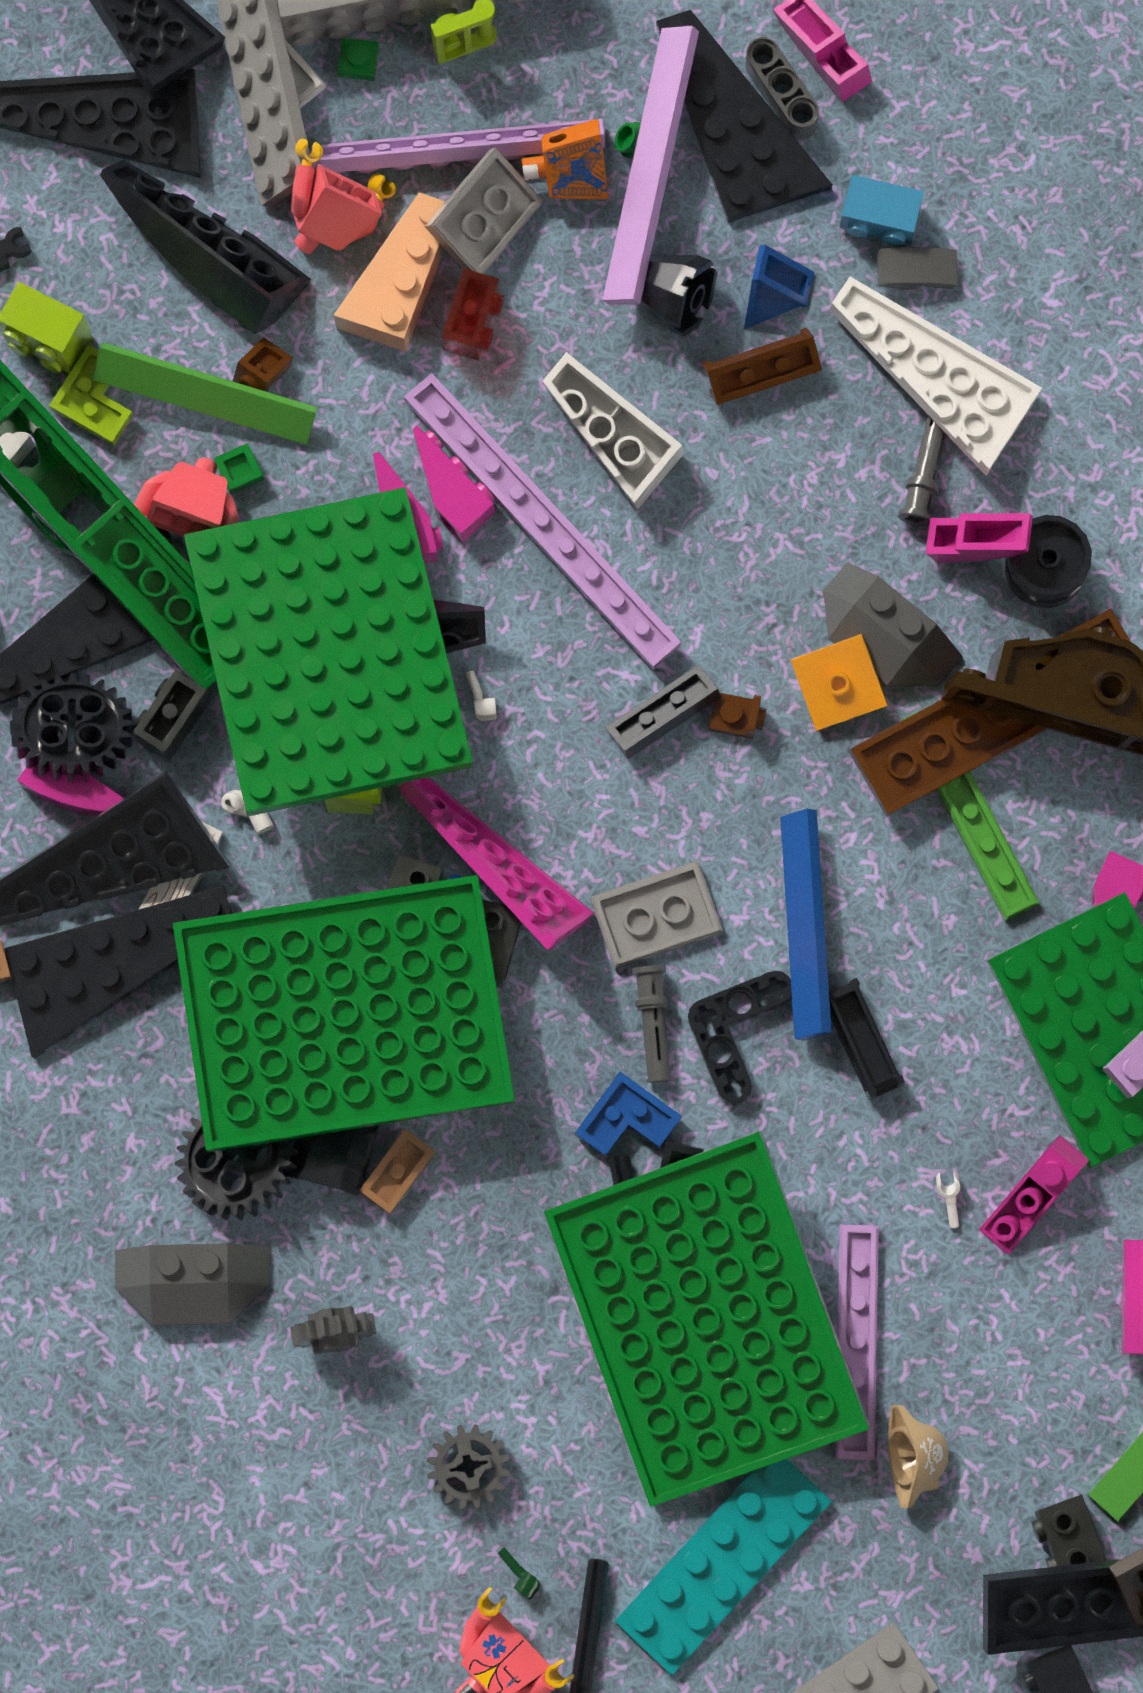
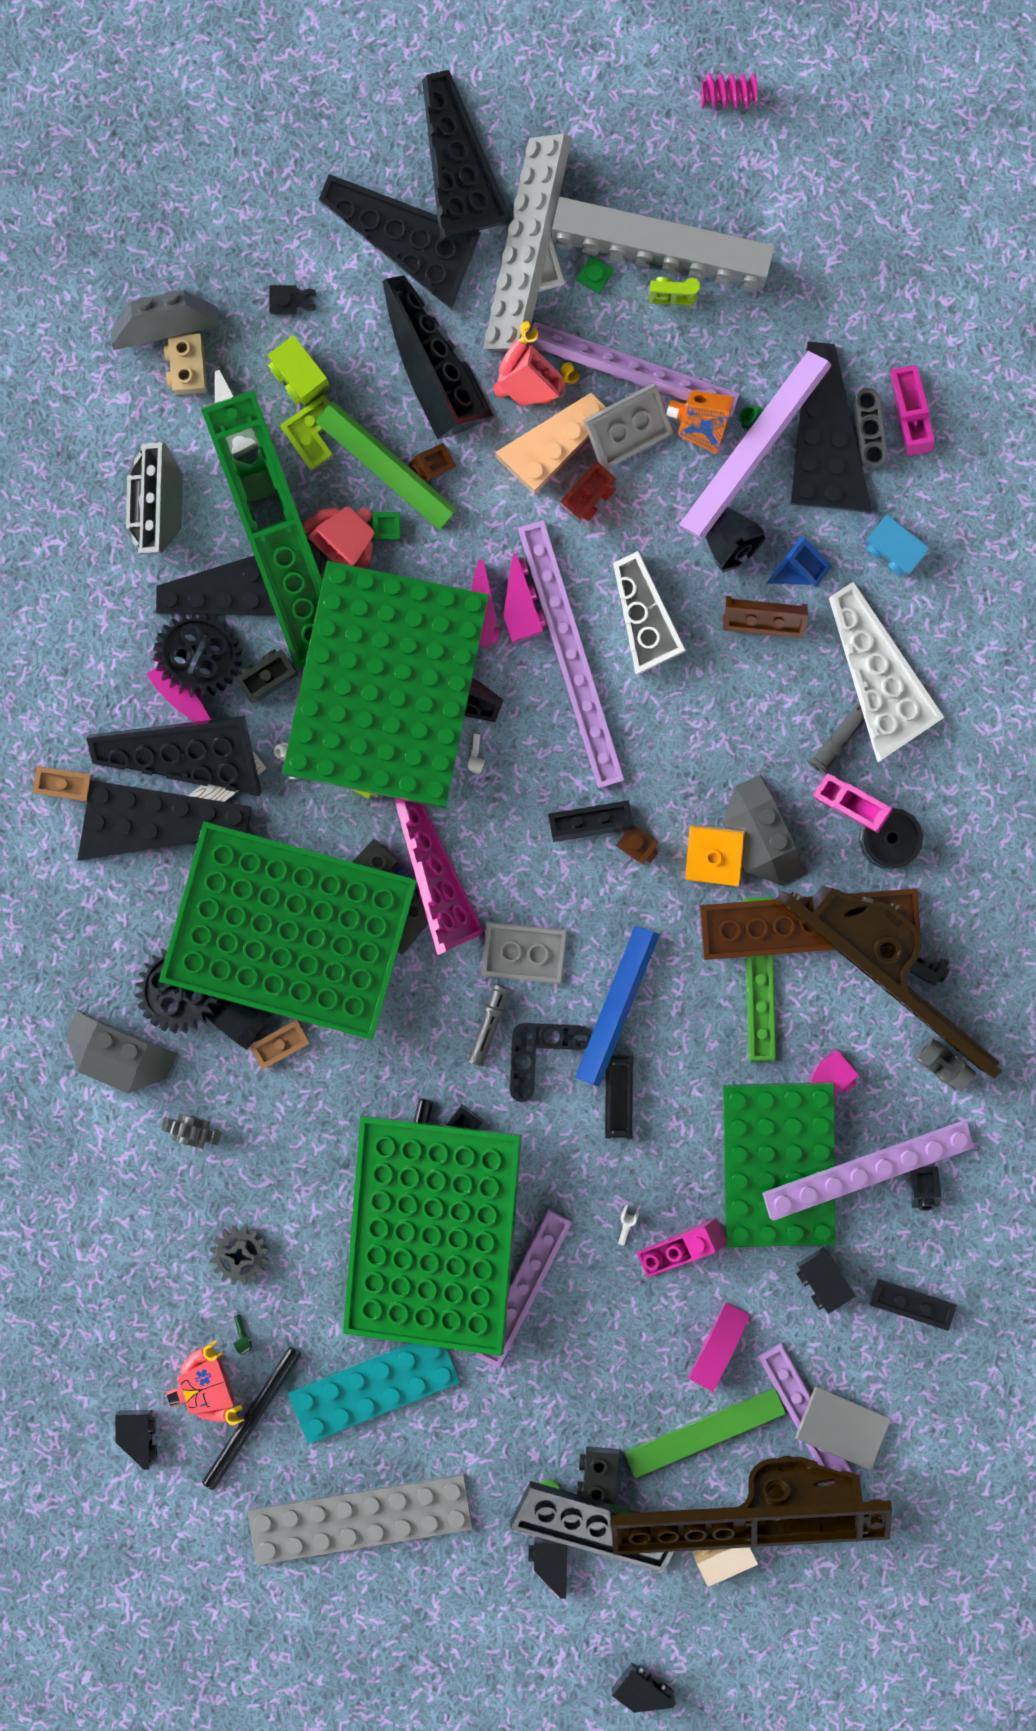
camera: 25 degrees right, 10 degrees up
(626, 1106) = (445, 1070): blue plate -> none
(915, 1455) = (526, 1379): tan hat -> none
(916, 267) = (901, 595): dark grey slope -> none

